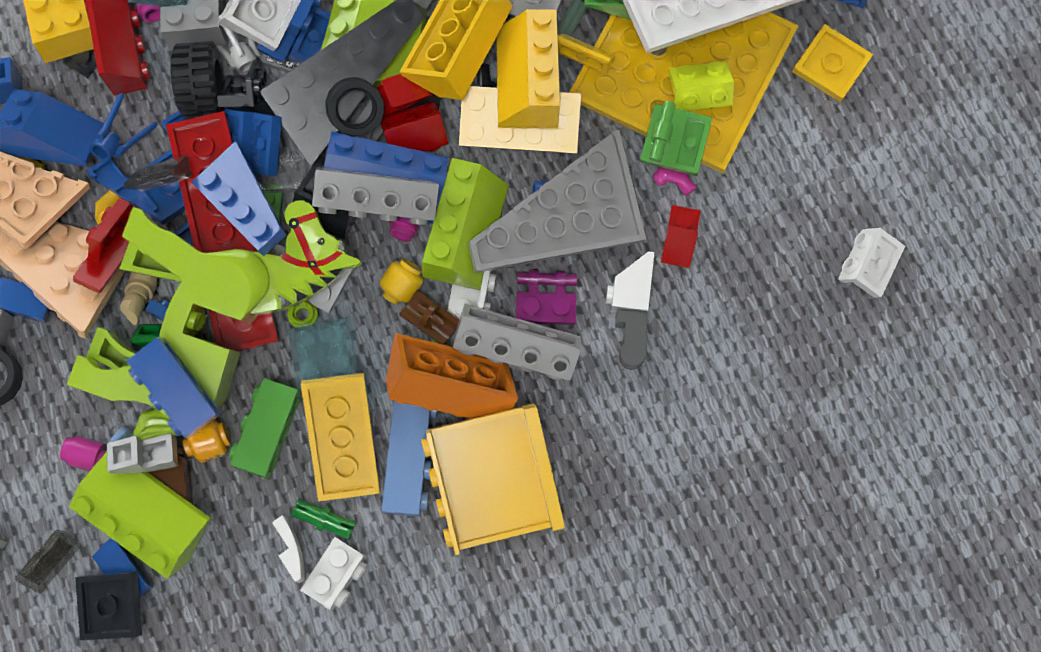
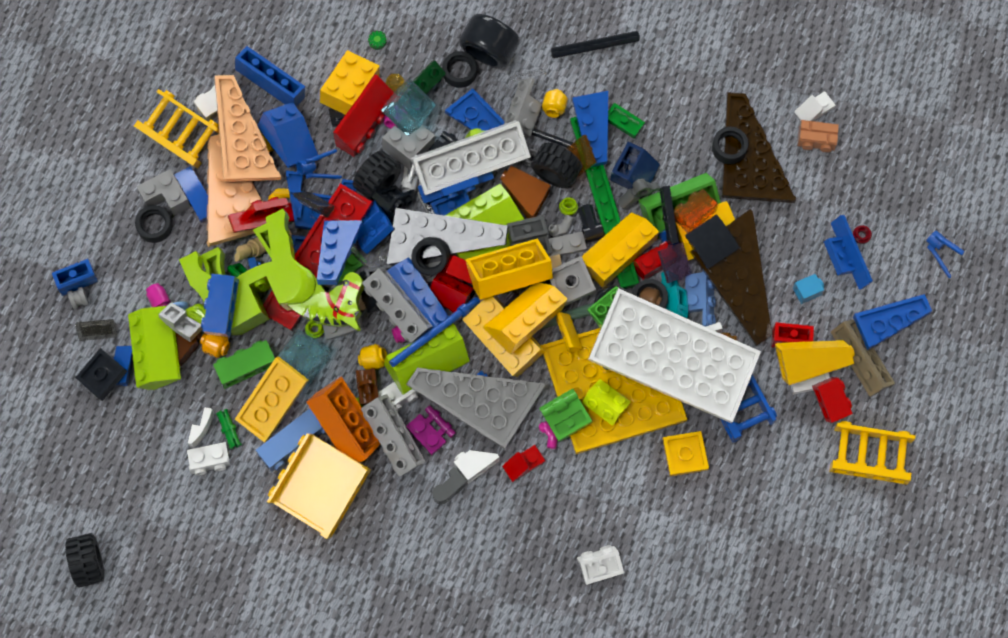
camera: 45 degrees right, 5 degrees down
(450, 136) = (462, 311): none -> blue bar

